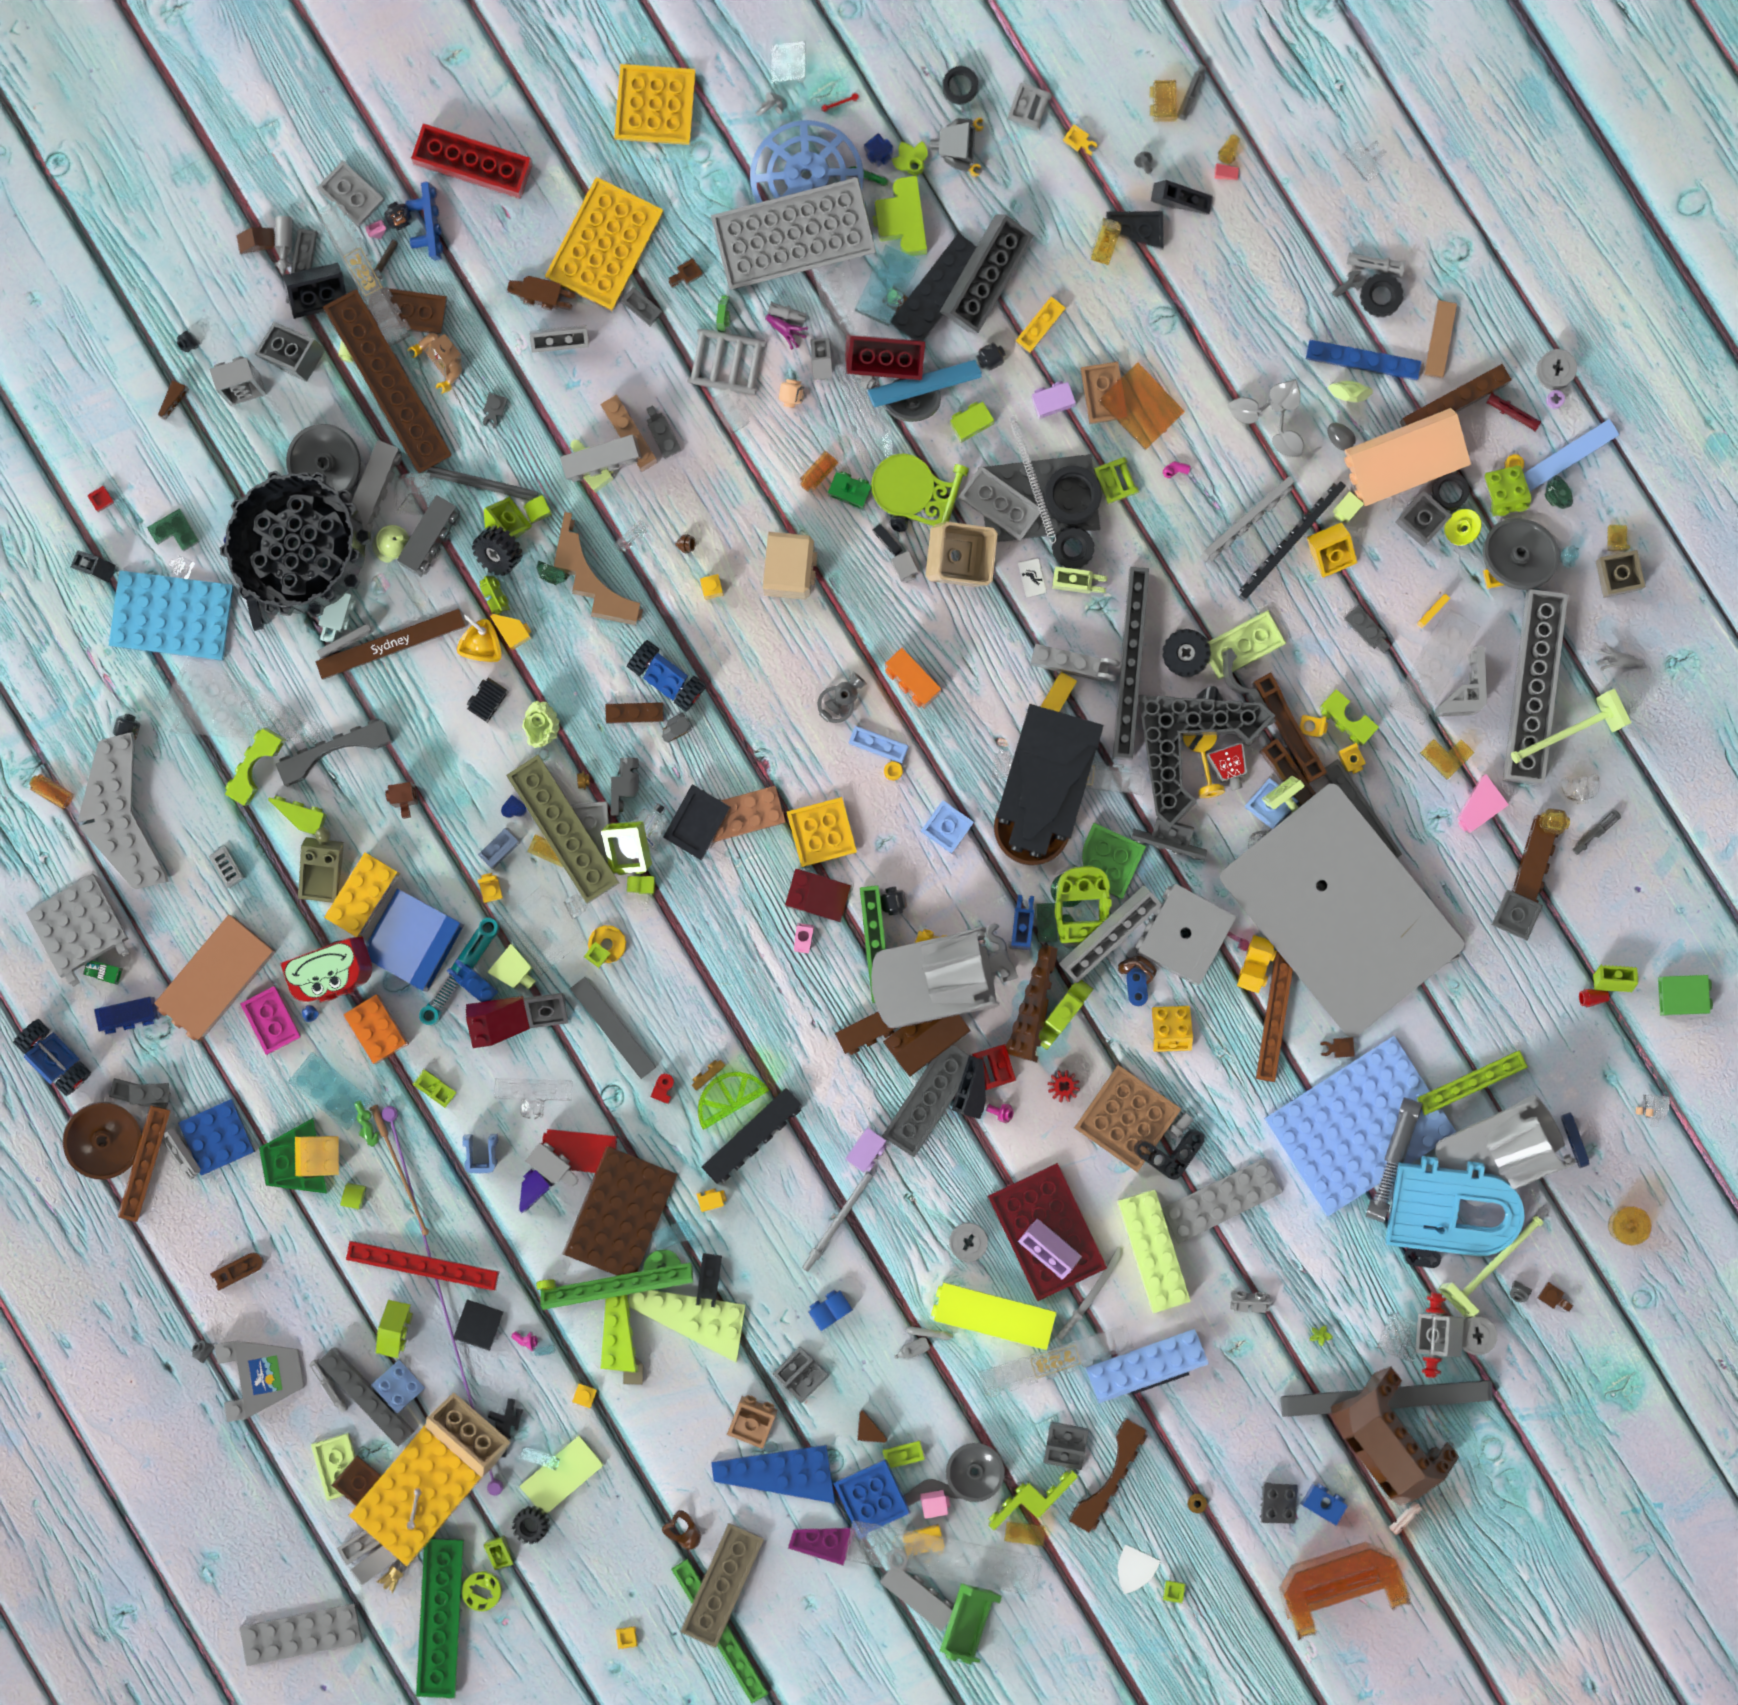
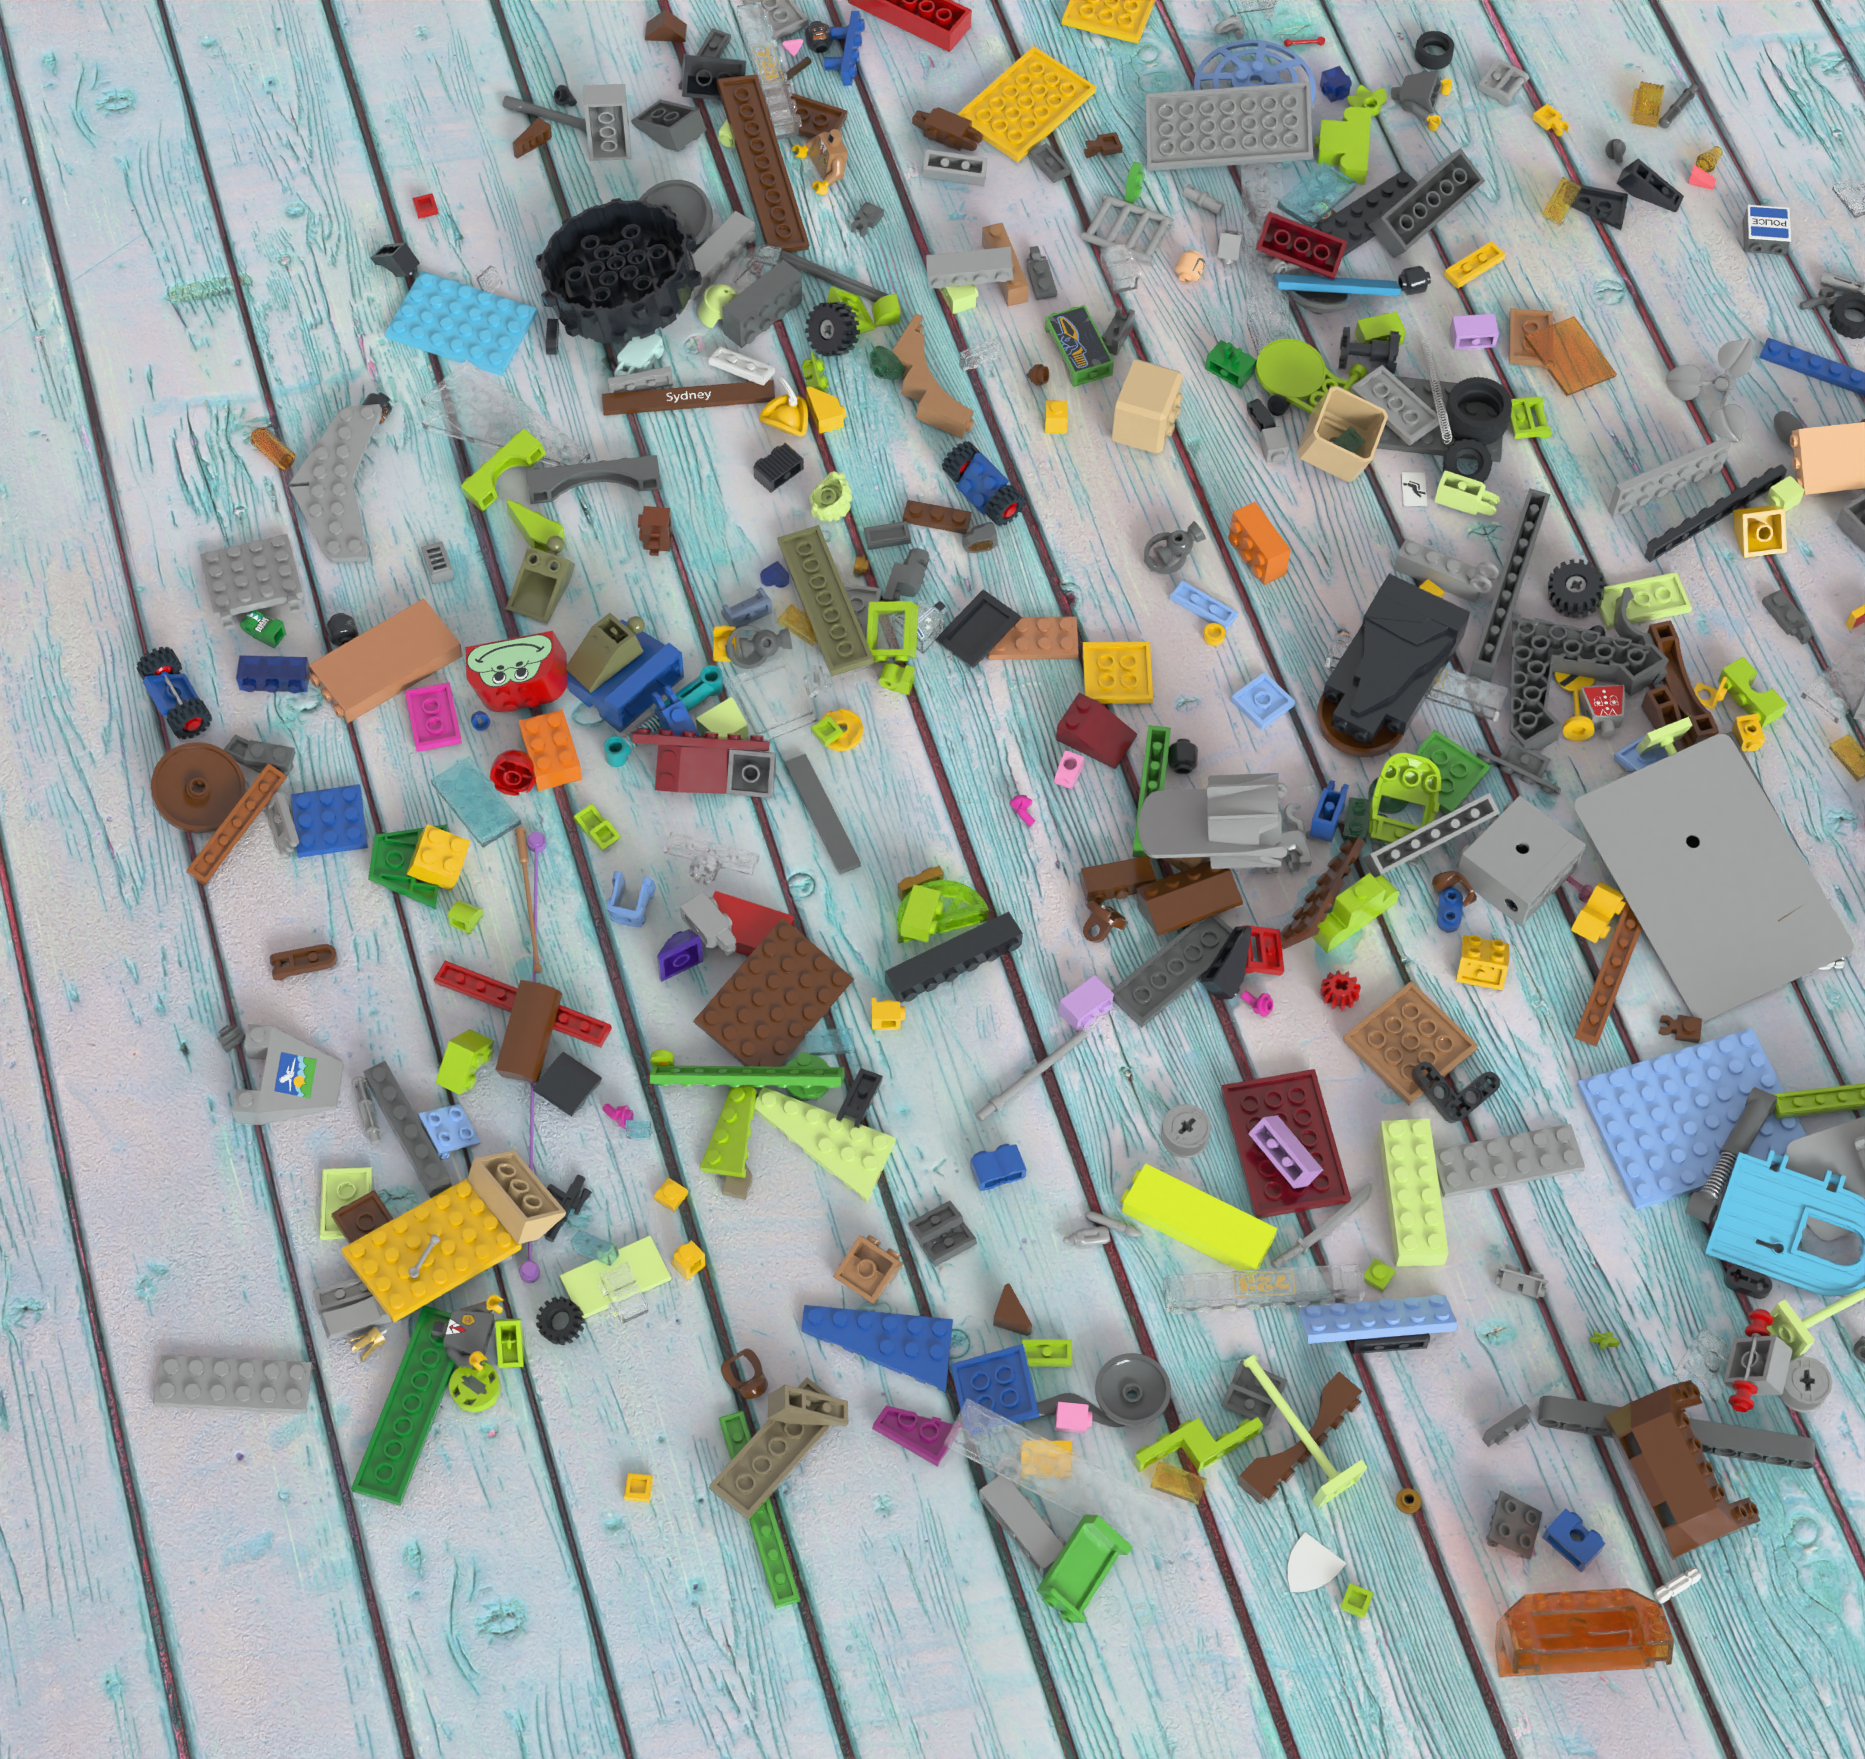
camera: 10 degrees right, 25 degrees down
(150, 363) = (522, 106): none -> dark grey piece
(169, 957) = (341, 629): none -> black head
(174, 525) = (492, 244): clear green plate -> none
(283, 241) = (694, 31): light grey wheel -> none
(352, 1058) = (513, 772): none -> red cylinder
(362, 895) = (579, 610): yellow brick -> none
(367, 1130) = (504, 851): bright green animal -> none
(395, 936) = (605, 651): none -> olive slope
(427, 600) = (741, 366): none -> white tile
(436, 1295) = (528, 1031): none -> reddish brown brick
(466, 1560) = (469, 1332): none -> dark grey torso
(497, 1000) = (690, 739): none -> dark red plate
(523, 883) = (756, 645): none -> dark grey piece
(572, 1492) = (625, 1296): none -> clear piece
(597, 742) = (887, 535): none -> dark grey tile
(613, 1449) = (685, 1258): none -> yellow brick
(663, 1085) = (862, 886): red leg -> none
(713, 503) = (1080, 345): none -> panel
(717, 1113) = (921, 913): none -> lime brick
(736, 1553) = (806, 1407): none -> dark tan slope
(742, 479) = (1118, 331): none -> dark grey hinge
(772, 981) = (1020, 805): none -> dark pink plate
(786, 329) = (1199, 212): magenta piece -> none
(818, 471) = (1201, 340): clear orange brick -> none
(863, 1069) = (1104, 917): none -> reddish brown tile
(873, 177) = (1321, 106): green piece -> none
(966, 557) = (1350, 440): none -> clear green slope
(974, 449) = (1377, 351): none -> black piece
(1140, 1324) = (1378, 1275): none -> lime plate
(1142, 1509) = (1337, 1481): none -> yellowish green tile
(1175, 467) = (1595, 421): dark pink arm -> none
(1180, 1126) = (1470, 1067): light grey pin -> none
(1265, 1420) = (1500, 1431): none -> dark grey plate
(1291, 220) = (1766, 229): none -> piece
(1350, 391) = (1802, 388): yellowish green hat -> none

